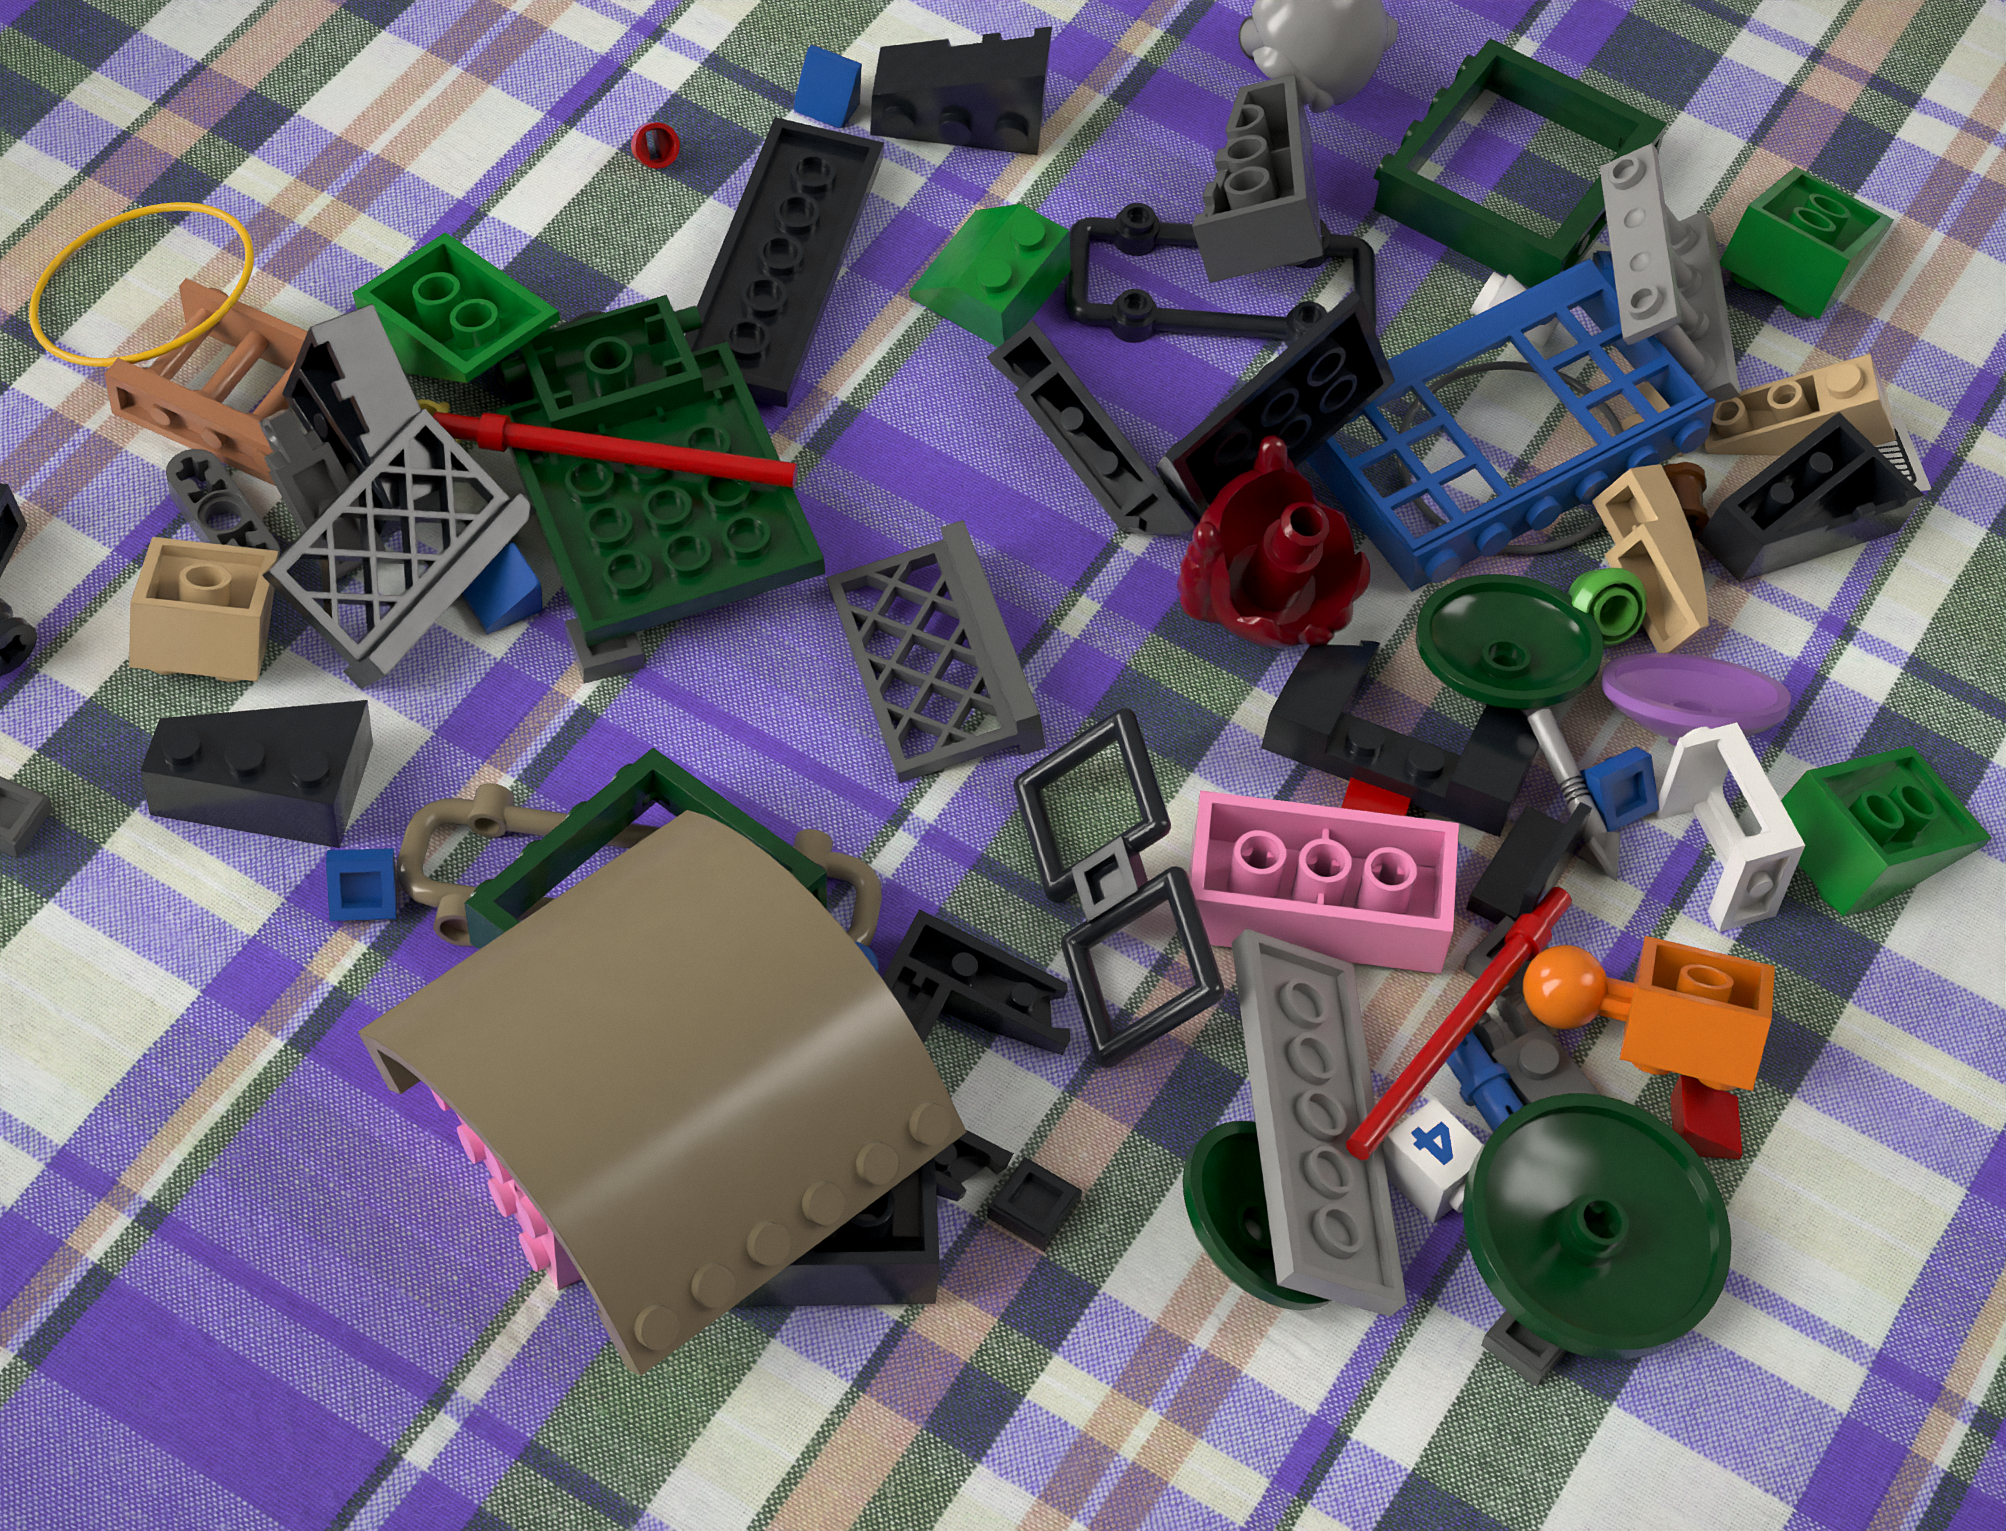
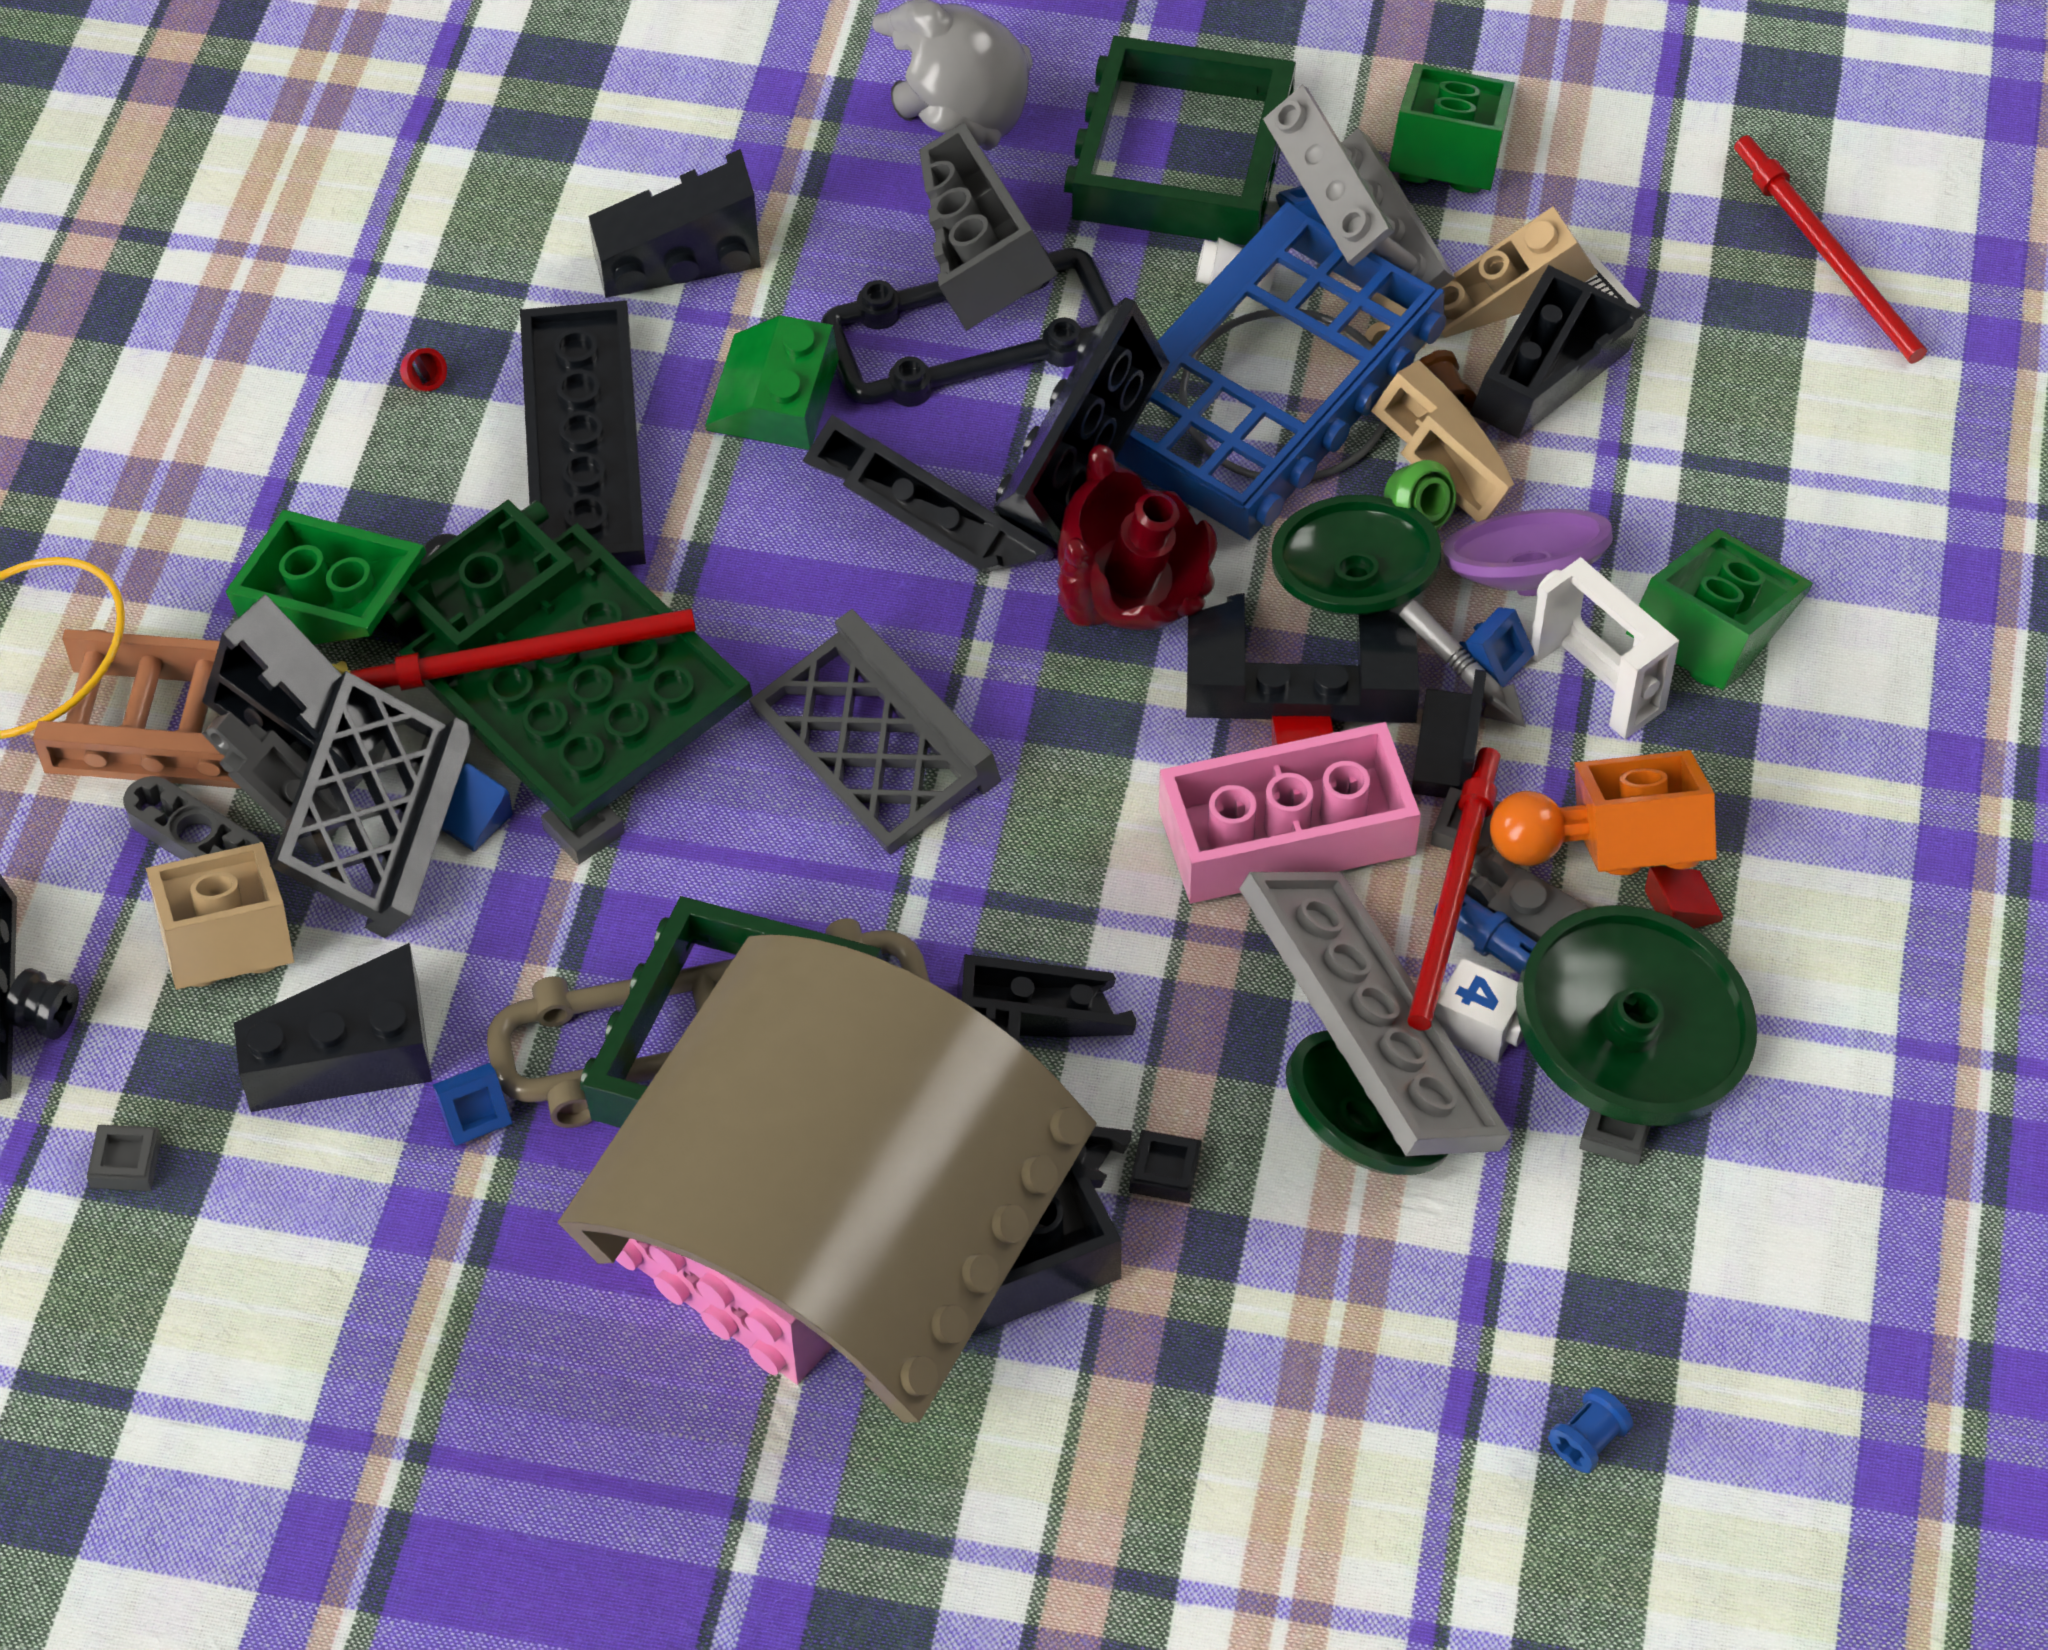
camera: 15 degrees left, 0 degrees up
(828, 87) = (553, 267): blue slope -> none
(1117, 888) = (1122, 877): black bar -> none

